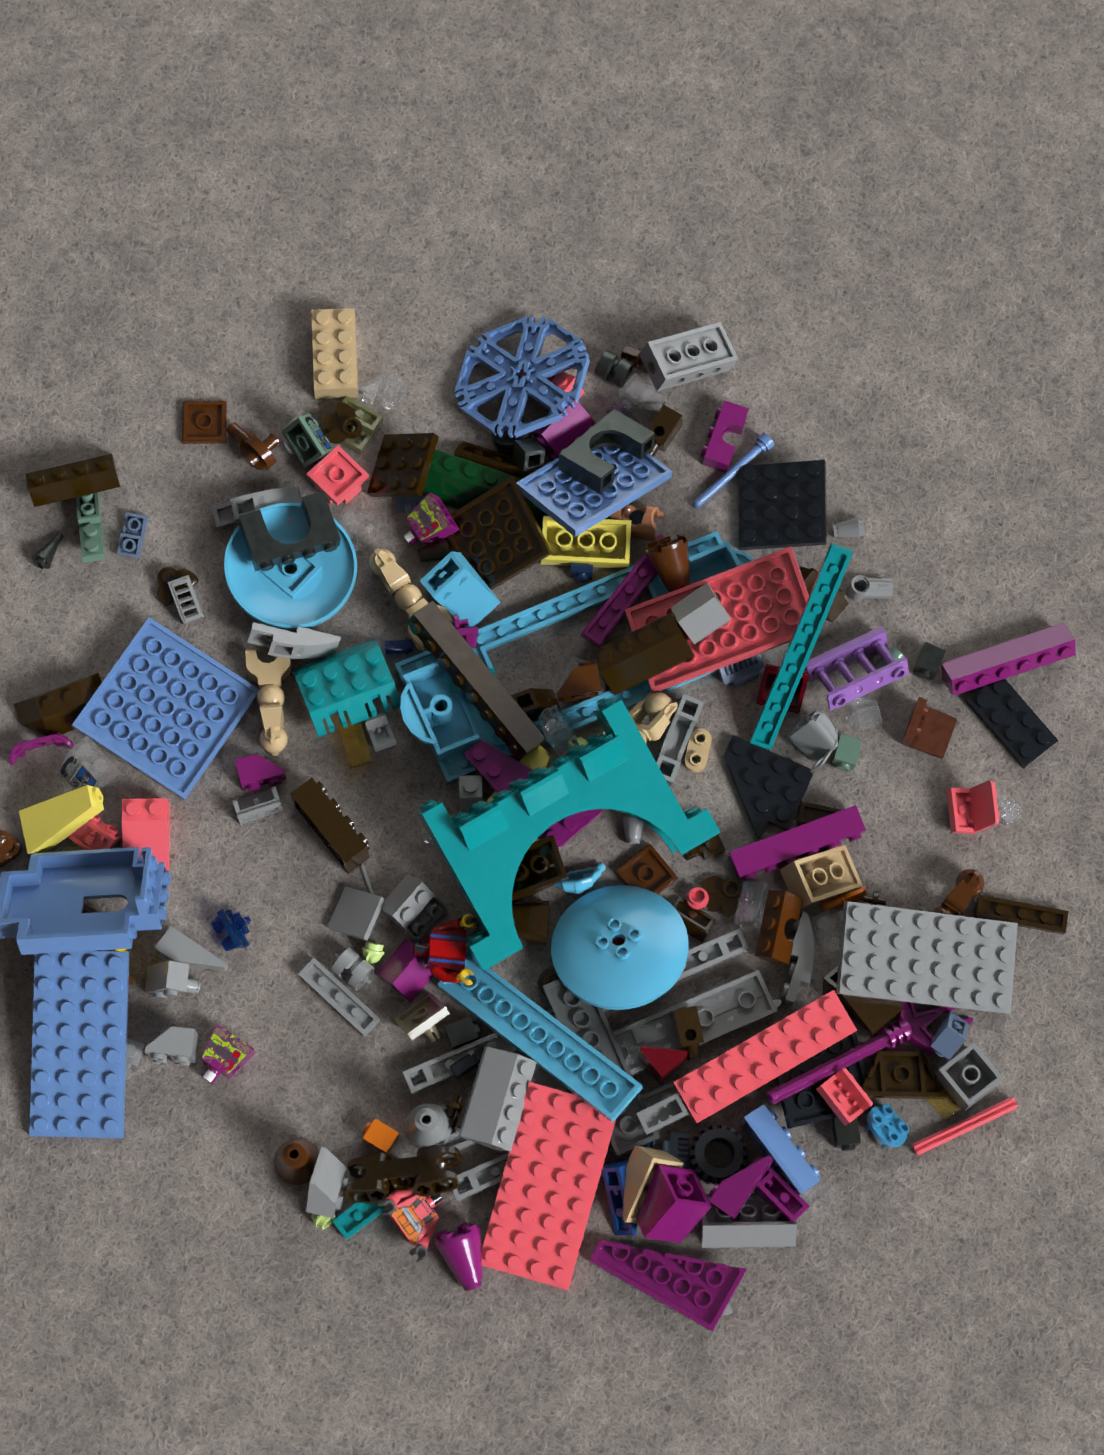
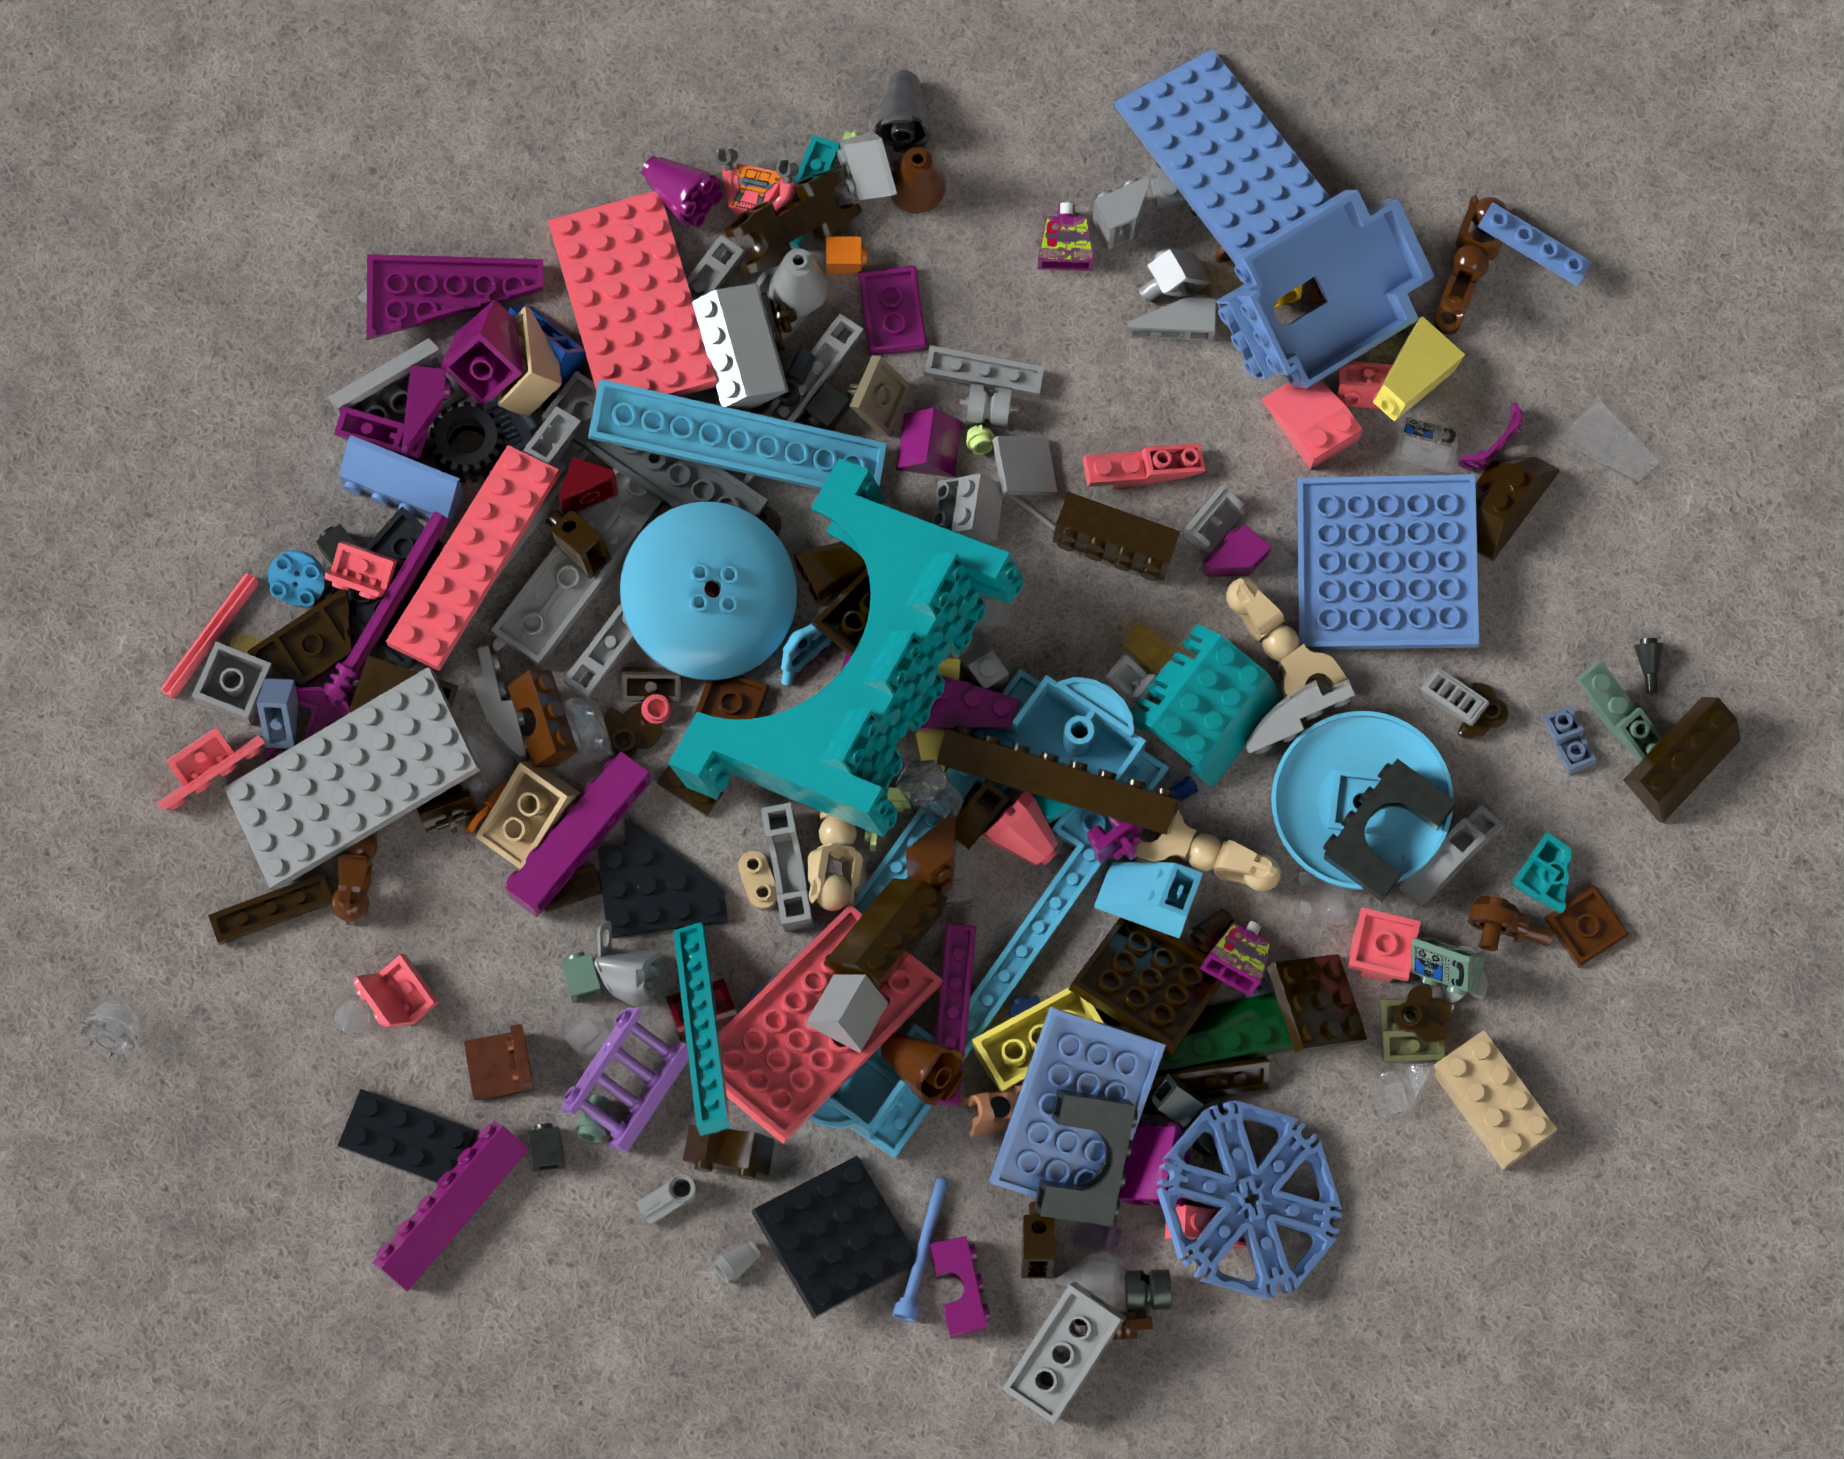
camera: 150 degrees right, 0 degrees up
(207, 464) = (1546, 873): none -> teal slope
(235, 927) = (1148, 374): clear blue hips -> none
(273, 1216) = (903, 114): none -> flat silver cone
(278, 867) = (1144, 467): none -> coral slope
(372, 1080) = (892, 310): none -> magenta tile
(446, 951) = (896, 469): torso -> none
(515, 672) = (1023, 831): none -> coral cone
(1015, 1035) = (204, 761): none -> coral bracket

